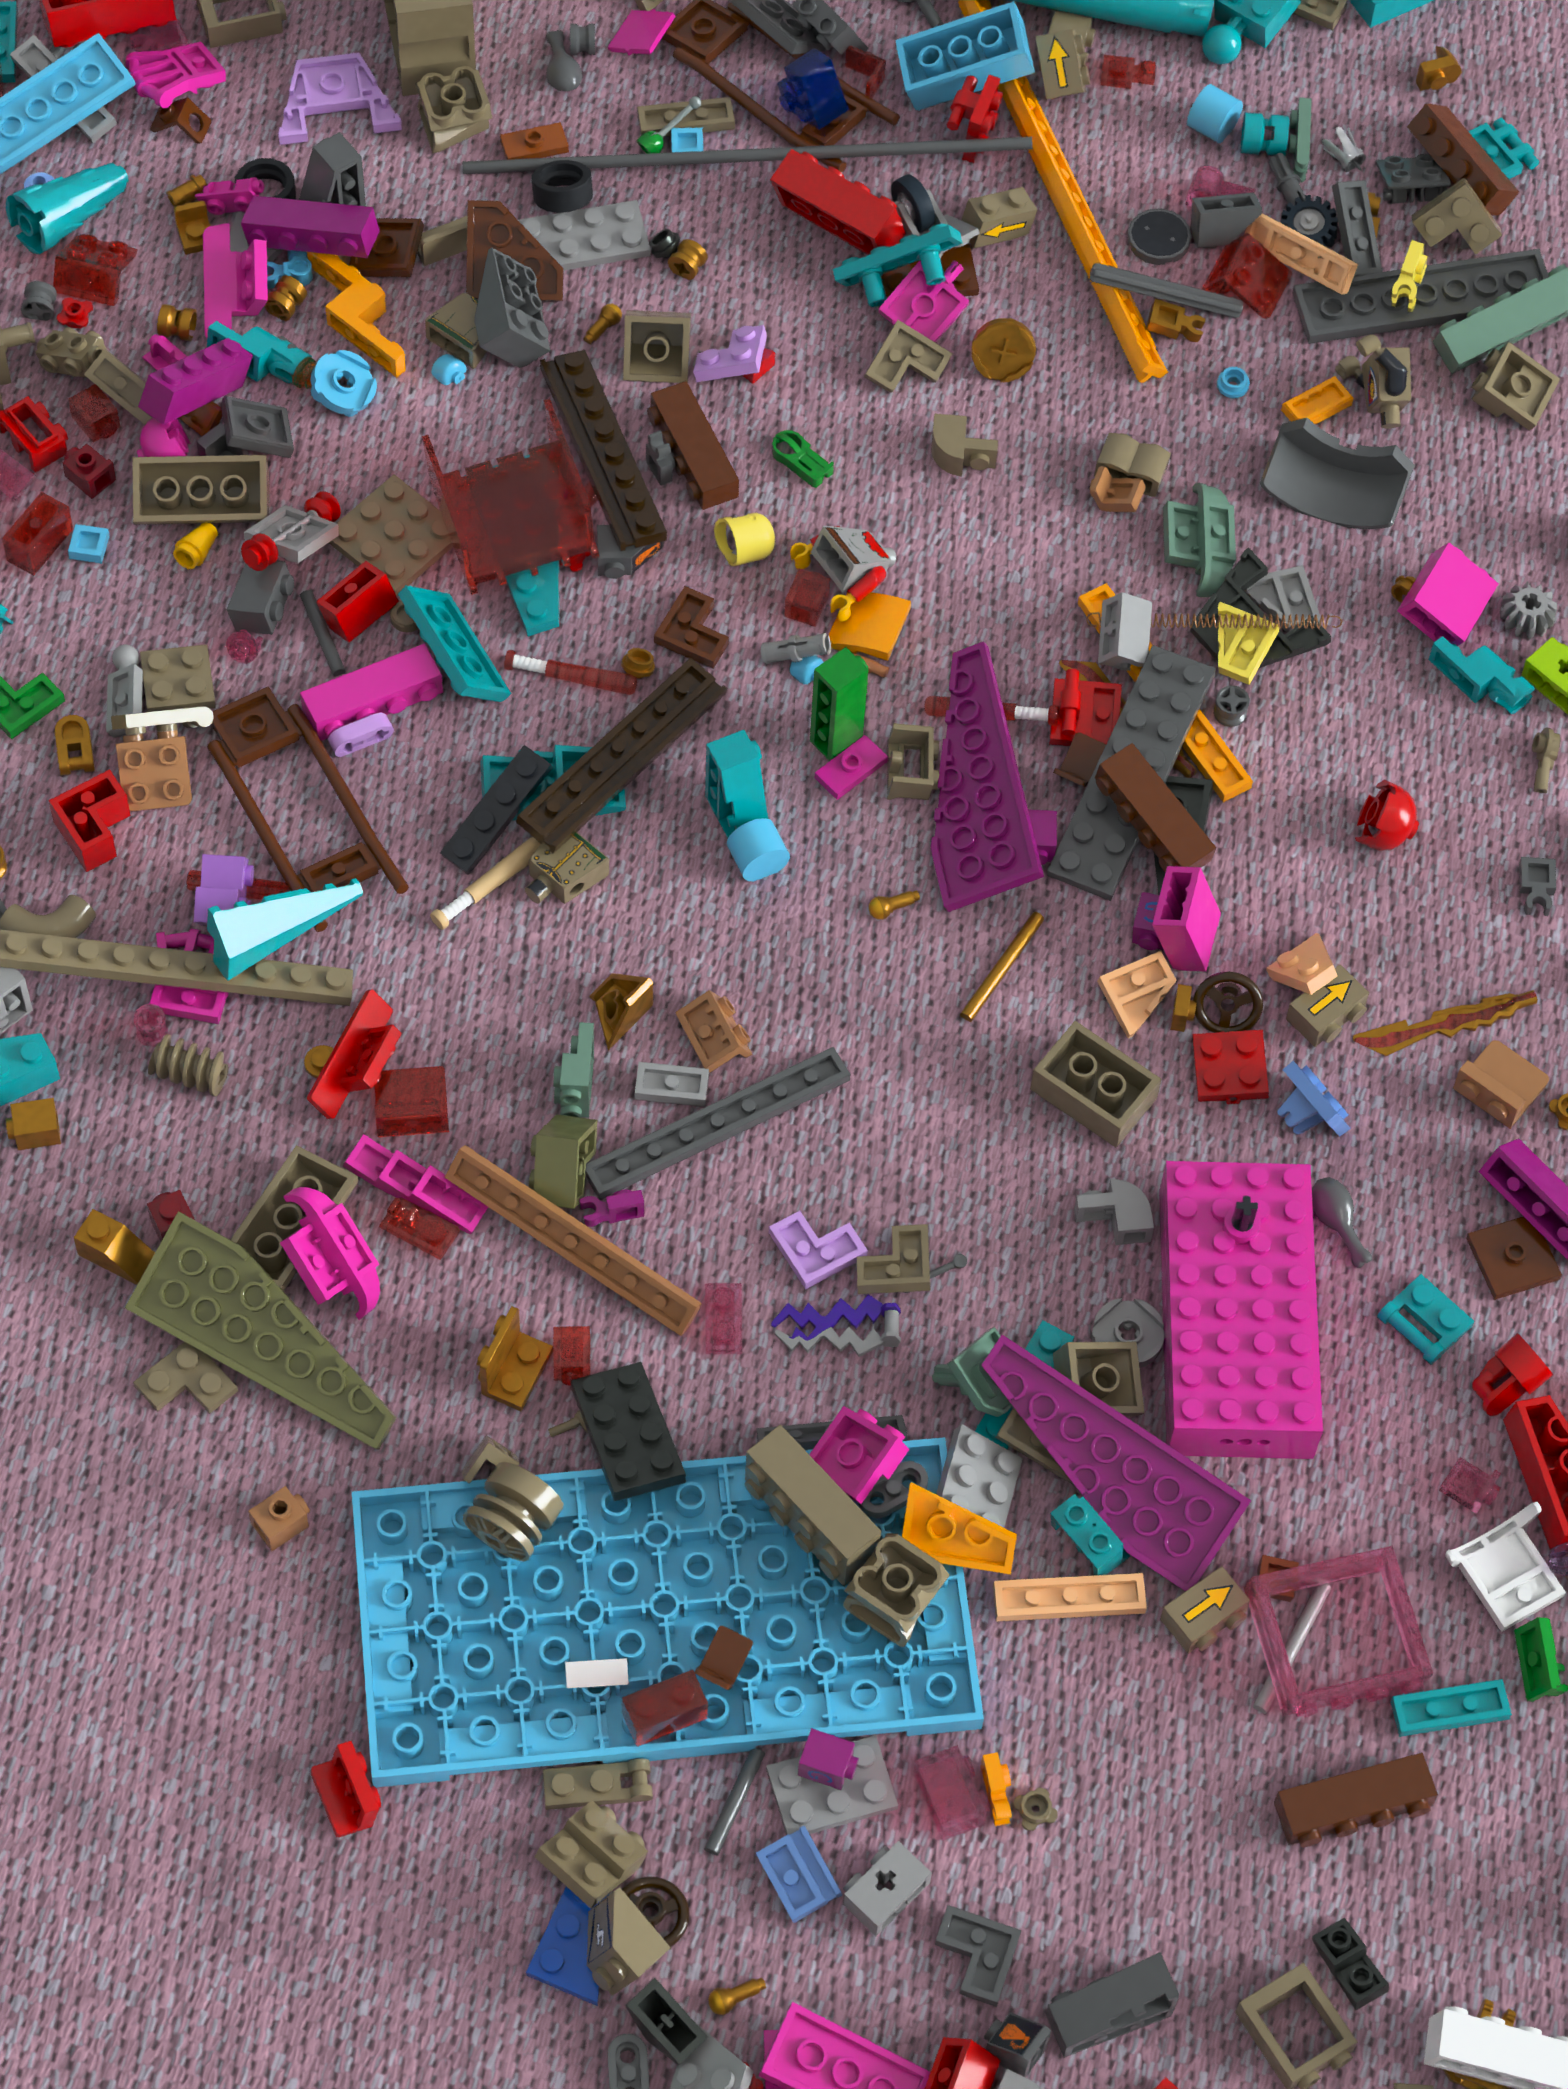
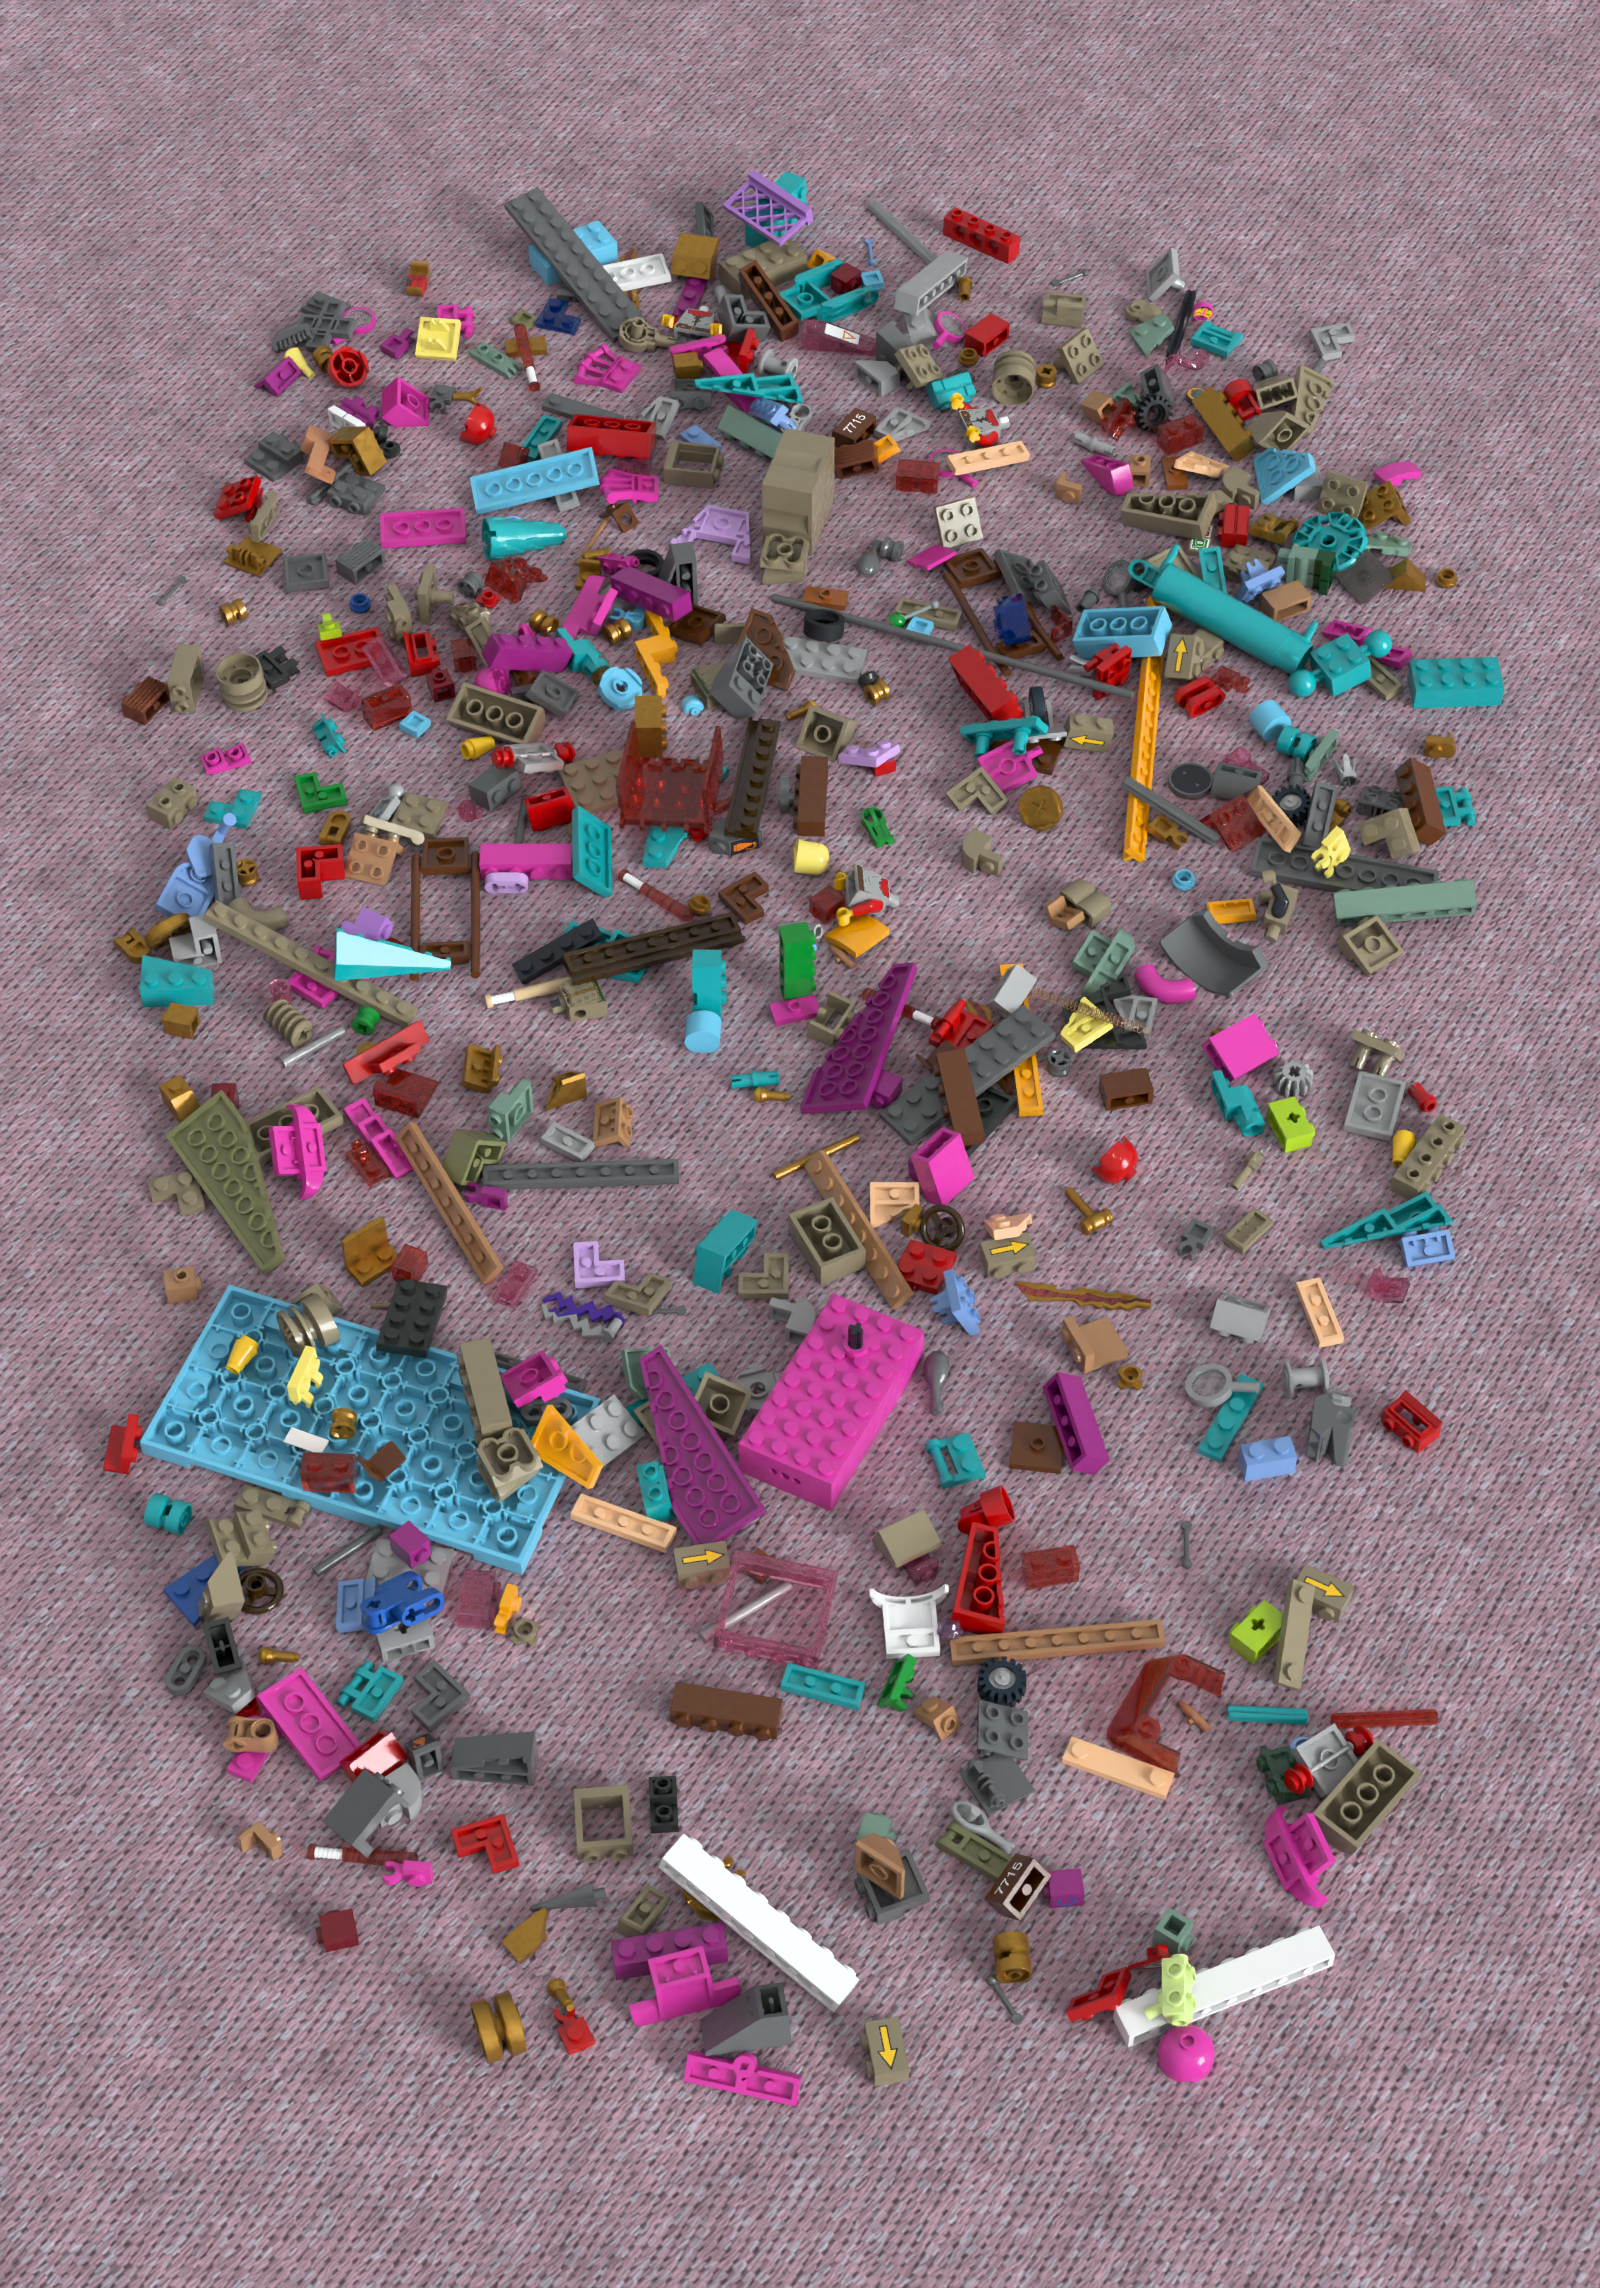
camera: 30 degrees right, 10 degrees down
(163, 172) = (593, 539): none -> medium nougat axle
(239, 1085) = (312, 1047): none -> light grey bar
(292, 1018) = (365, 1020): none -> green wheel
(418, 414) = (650, 726): none -> pearl gold brick
(438, 1588) = (241, 1354): none -> yellow cone
(456, 1862) = (164, 1513): none -> teal wheel
(493, 1022) = (481, 1068): none -> pearl gold bracket
(550, 1578) = (302, 1376): none -> light yellow plate
(638, 1628) = (343, 1423): none -> pearl gold wheel
(861, 889) = (755, 1079): none -> teal pin
(867, 1853) = (398, 1604): none -> blue piece
(882, 16) = (1091, 597): none -> dark grey pin
(899, 1987) = (375, 1695): none -> teal plate
(934, 123) = (1079, 669): none -> flat silver piece
(971, 1153) = (721, 1248): none -> teal wedge
(1054, 1171) = (771, 1283): none -> dark tan plate
(1097, 98) = (1199, 696): none -> red brick
(1177, 1085) = (878, 1260): none -> medium nougat plate
(1299, 550) = (1165, 990): none -> dark pink cylinder
(1335, 709) = (1126, 1089): none -> reddish brown brick
(1400, 911) = (1093, 1220): none -> pearl gold piece
(1440, 1458) = (907, 1539): none -> dark tan slope

